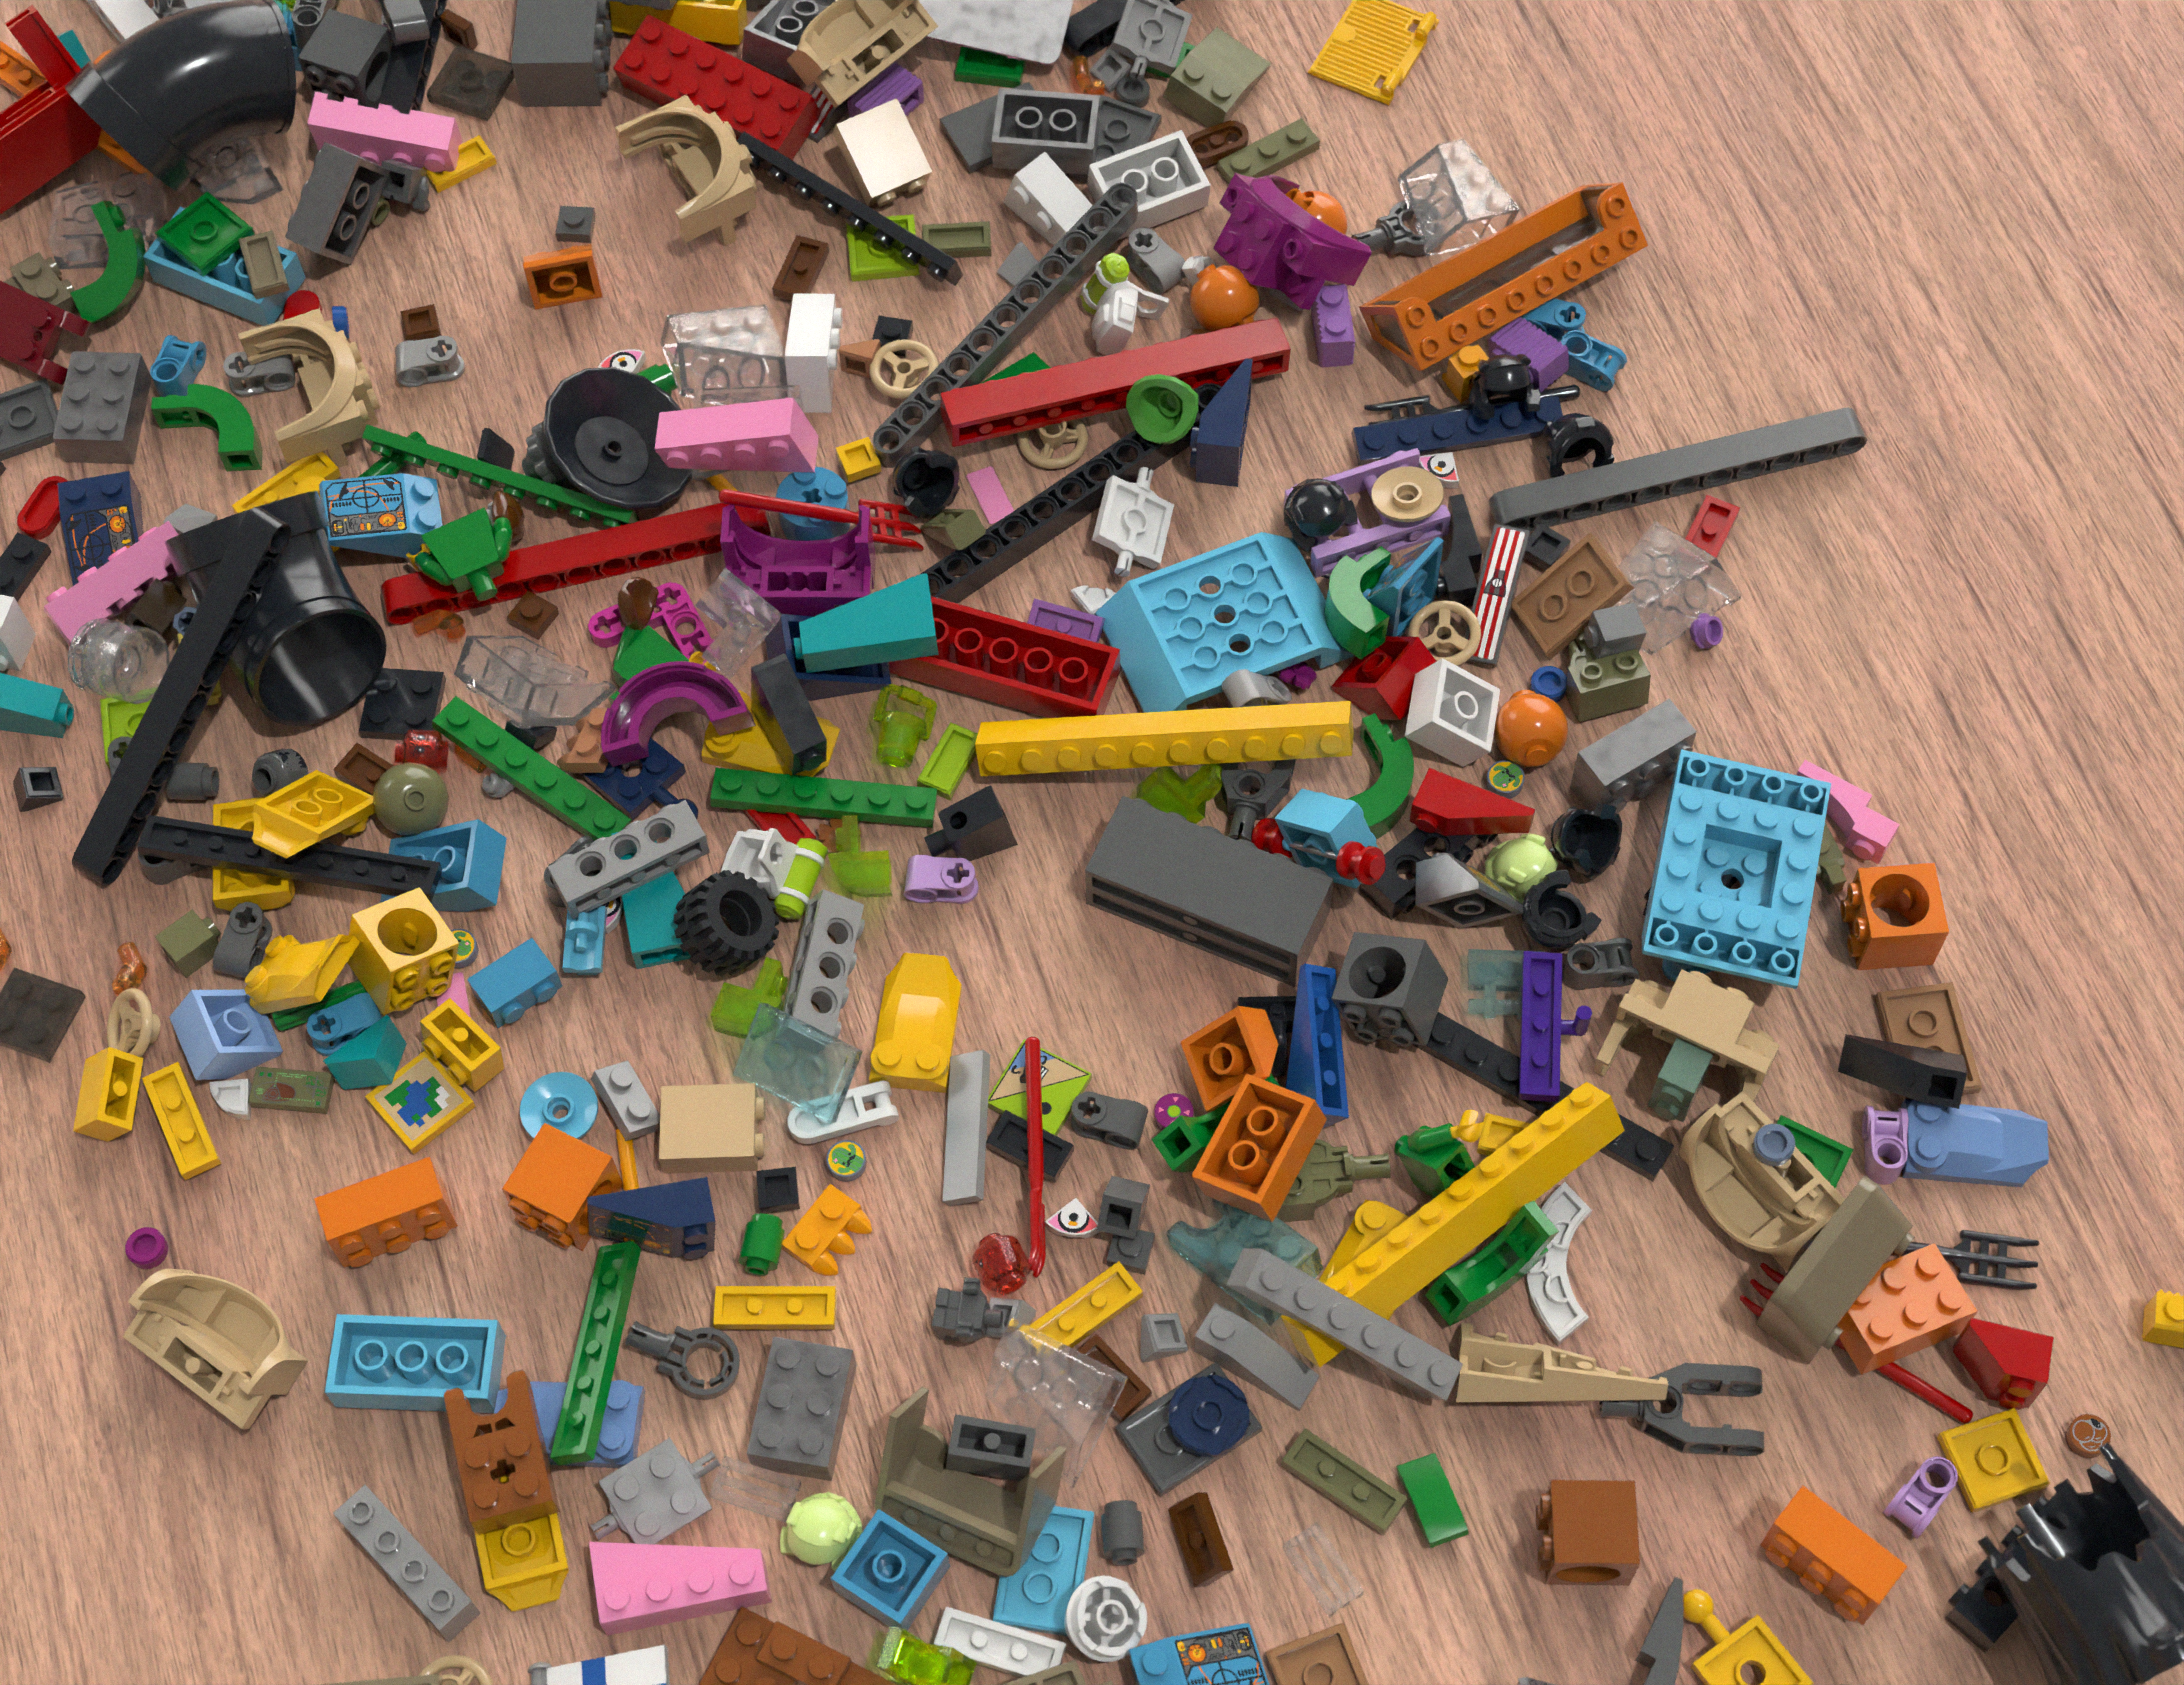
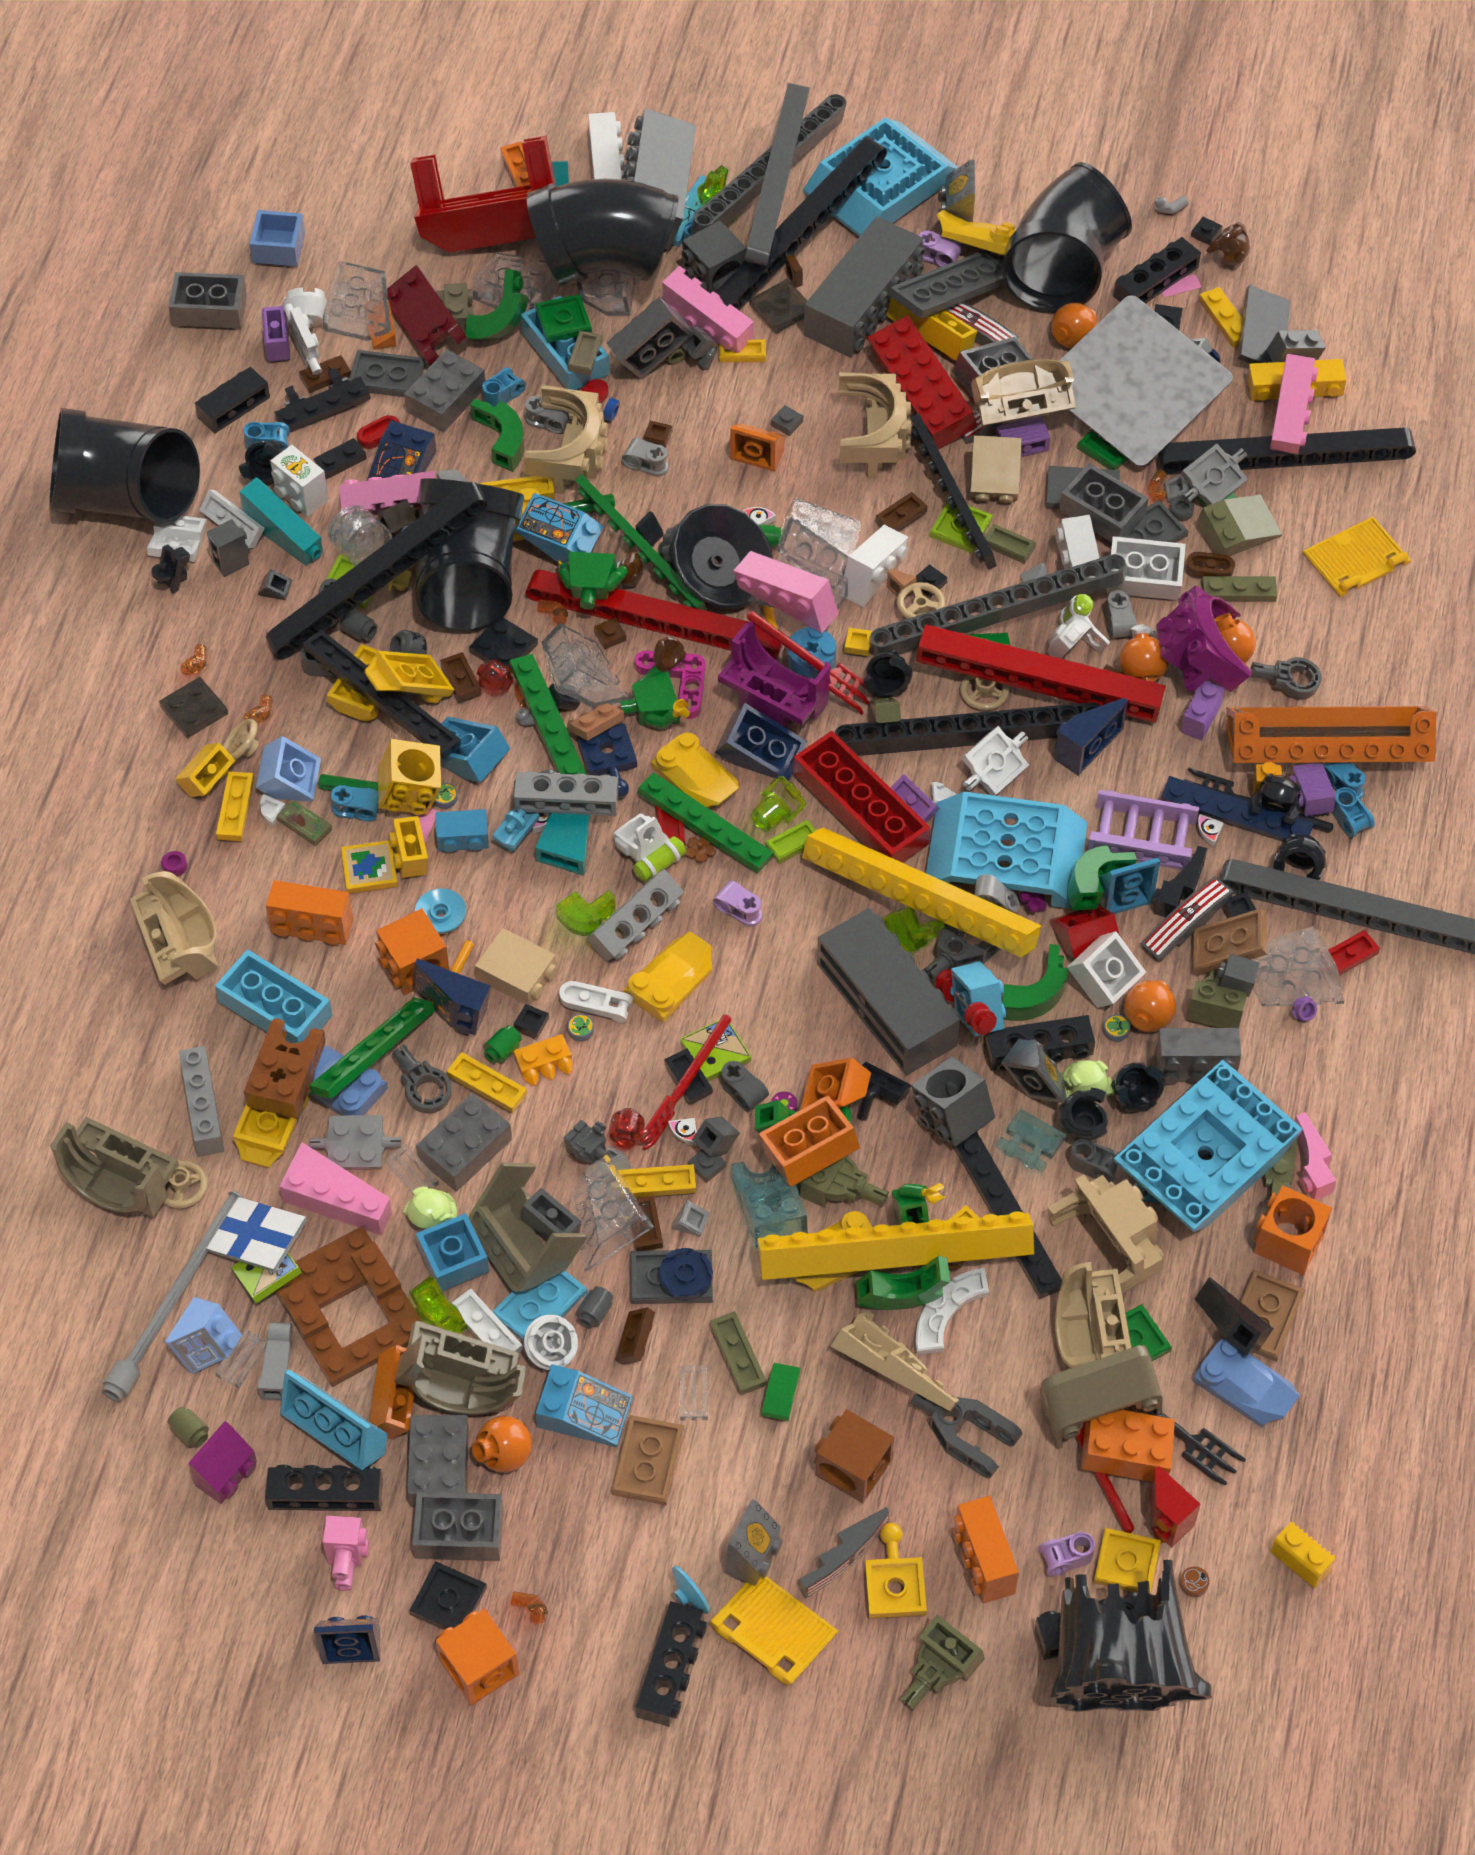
camera: 30 degrees right, 5 degrees down
(189, 942) = (301, 713): olive brick -> none
(243, 941) = (327, 730): dark grey piece -> none
(297, 972) = (345, 756): yellow slope -> none
(369, 1057) = (356, 826): teal slope -> none
(410, 799) = (471, 698): olive cylinder -> none
(626, 1100) = (480, 926): light grey plate -> none
(662, 692) = (643, 710): magenta brick -> none
(709, 938) = (614, 854): black tyre -> none
(743, 618) = (719, 692): clear brick -> none
(787, 715) = (709, 761): black slope -> none
(797, 1062) = (585, 955): clear light blue tile -> none
(857, 871) = (695, 871): clear neon green brick -> none
(872, 629) = (791, 738): teal slope -> none
(966, 1128) = (659, 1046): light grey tile -> none
(973, 827) = (777, 884): black torso -> none
(990, 494) = (925, 701): bright pink sticker -> none
(1162, 408) = (1053, 701): bright green helmet -> none
(1254, 1357) = (734, 1258): light grey slope -> none
(1316, 1044) = (887, 1111): blue slope -> none
(1316, 1305) = (790, 1261): light grey arch -> none
(1317, 510) = (1108, 810): black helmet -> none
(1407, 494) = (1170, 829): tan dish -> none
(1448, 647) = (1139, 936): tan piece -> none
(1455, 198) = (1333, 672): clear wedge -> none
(1461, 808) = (1069, 1025): red slope -> none
(1543, 1026) = (1031, 1172): dark purple plate -> none
(1549, 682) = (1183, 988): blue tile -> none
(1679, 1080) = (1090, 1244): sand green brick -> none
(1773, 1144) = (1112, 1307): sand blue tile -> none
(1884, 1136) = (1193, 1350): lavender piece -> none

